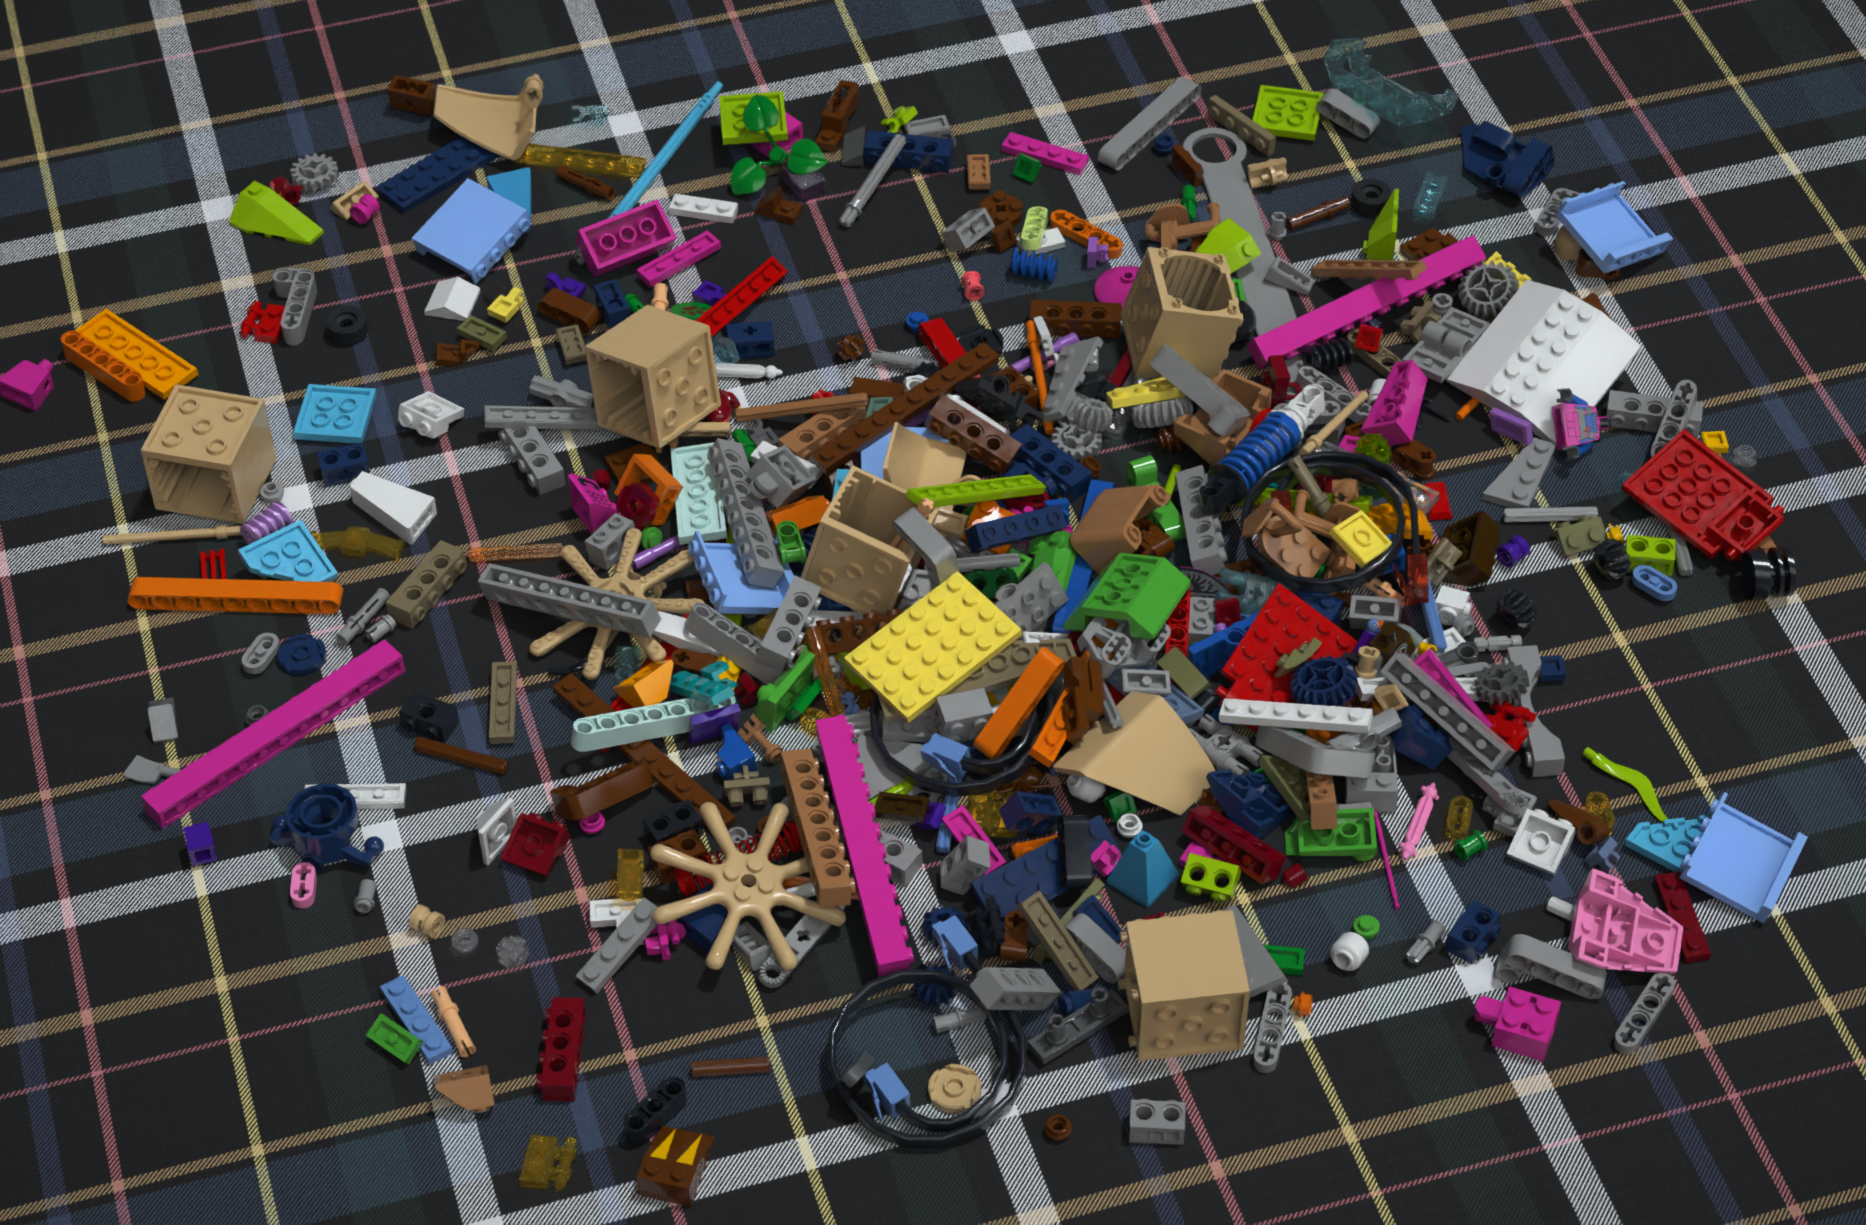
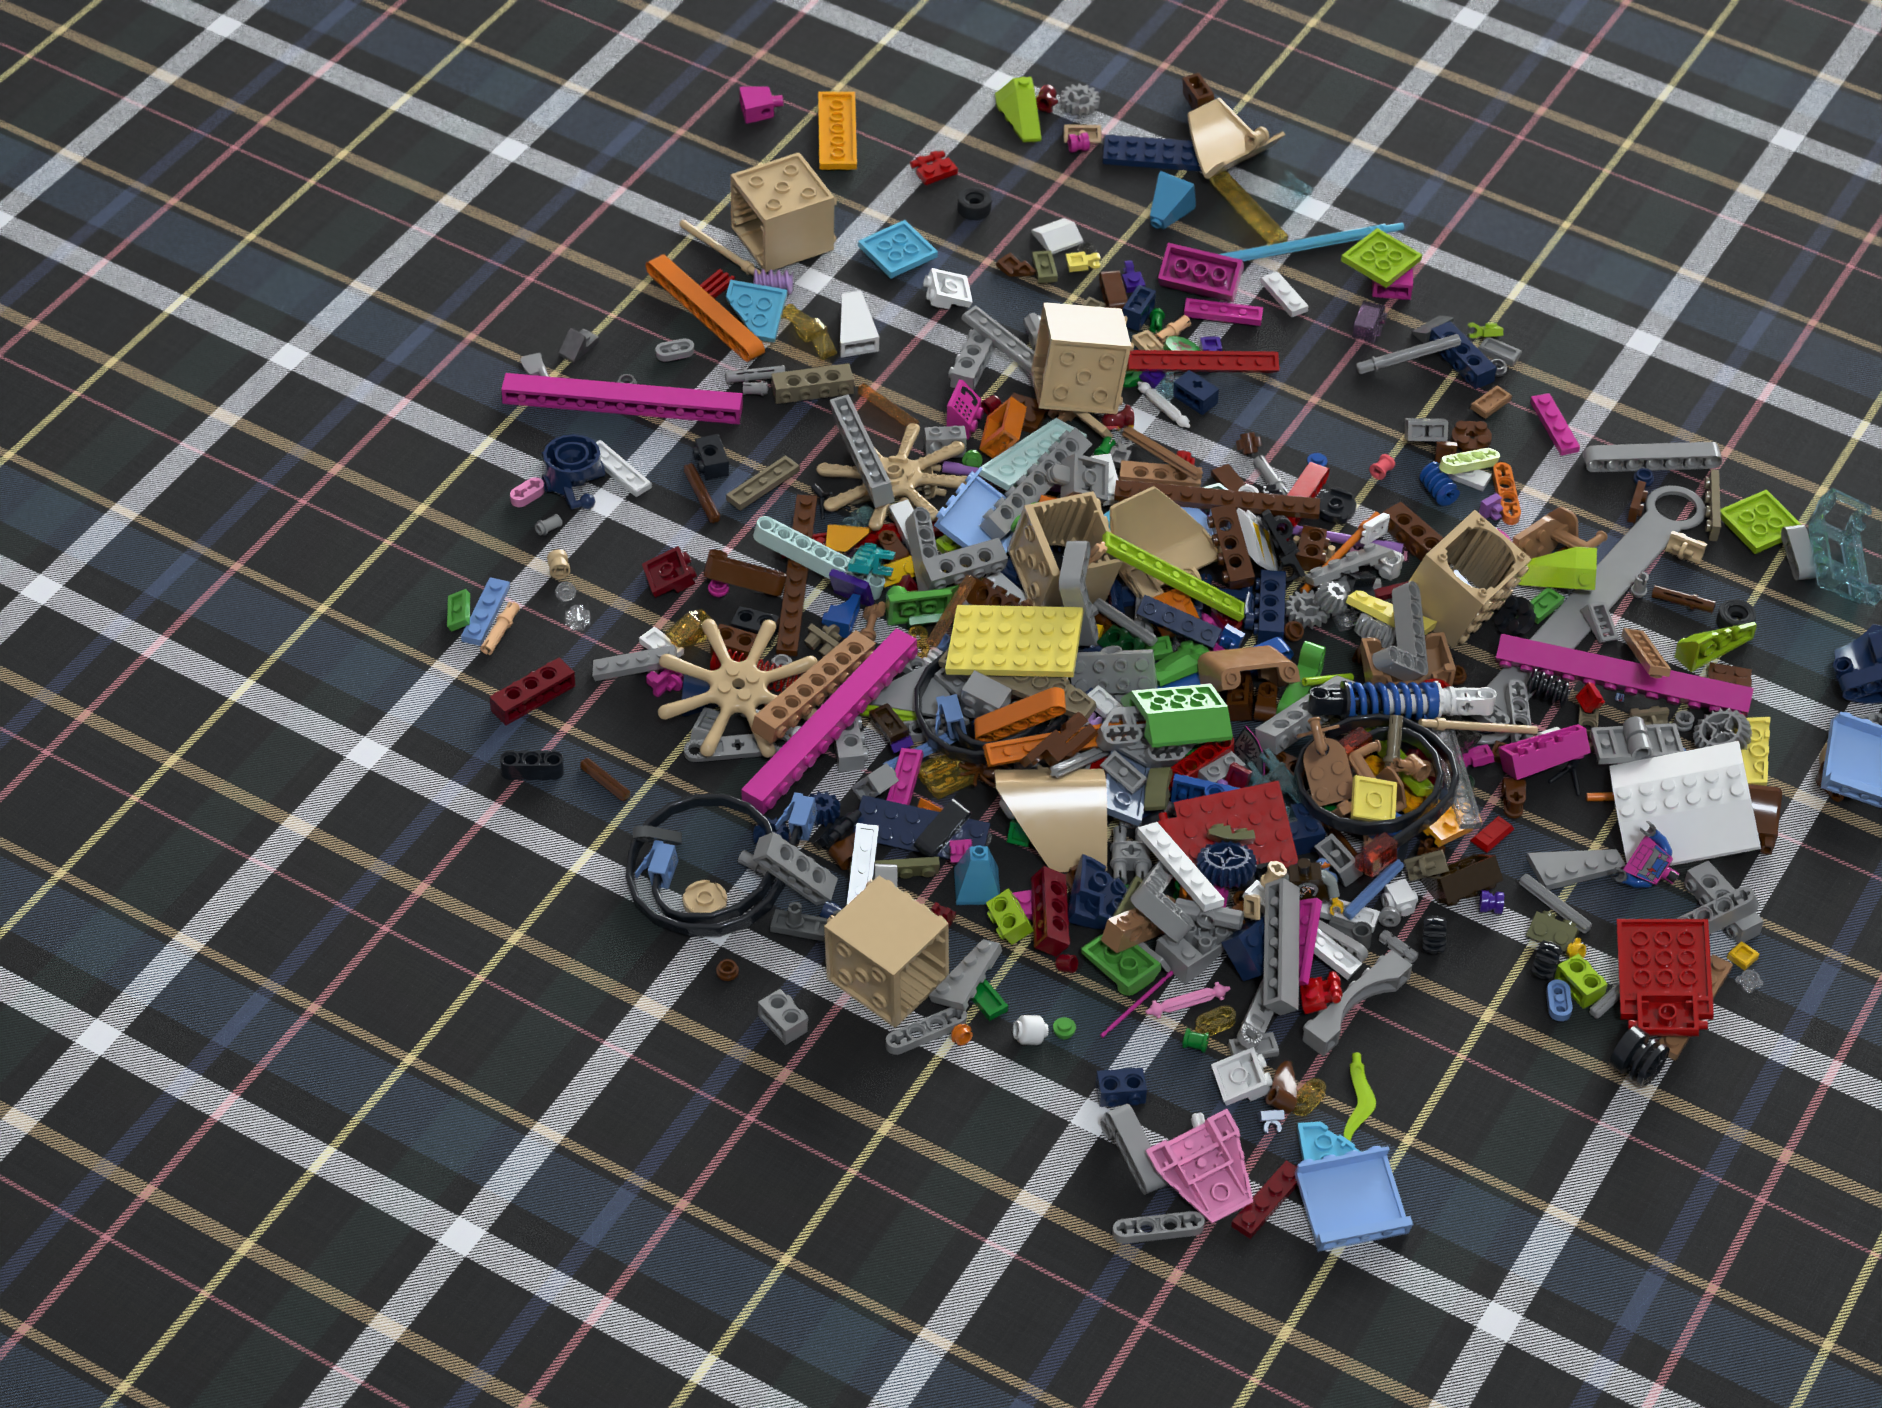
camera: 45 degrees right, 0 degrees up
(103, 366) = (810, 124): orange beam -> none
(200, 843) = (502, 424): dark purple brick -> none
(272, 492) = (804, 266): light grey plate -> none
(301, 291) = (975, 164): light grey beam -> none
(302, 655) = (697, 369): dark blue tile -> none
(342, 464) = (861, 278): dark blue brick -> none
(467, 1088) = (457, 667): medium nougat slope -> none
(472, 229) = (1118, 200): light blue panel -> none
(495, 828) = (652, 544): white slope -> none
(540, 1158) = (446, 742): clear yellow plate -> none
(592, 185) = (1236, 236): reddish brown pin -> none
(646, 501) = (983, 431): dark red plate -> none
(674, 1165) = (503, 801): reddish brown slope -> none
(777, 208) = (1331, 330): reddish brown slope -> none
(804, 156) = (1377, 303): green plant -> none
(836, 116) = (1444, 298): reddish brown plate -> none
(1027, 167) = (1526, 423): green tile -> none
(1030, 813) = (951, 784): dark blue brick -> none
(1100, 916) = (908, 877): dark blue tile -> none
(1129, 825) = (1010, 849): white plate -> none
(1189, 201) = (1604, 525): green axle -> none
(1278, 378) = (1482, 672): dark red piece -> none
(1375, 447) = (1489, 759): clear neon green gear -> none
(1425, 942) = (1084, 1067): light grey axle -> none
(1430, 195) = (1782, 648): clear light blue plate -> none
(1501, 683) = (1349, 964): dark grey gear -> none
(1511, 426) = (1606, 828): medium lavender tile -> none
(1521, 1022) = (1071, 1160): dark pink brick -> none
(1552, 668) = (1408, 989): dark blue plate -> none

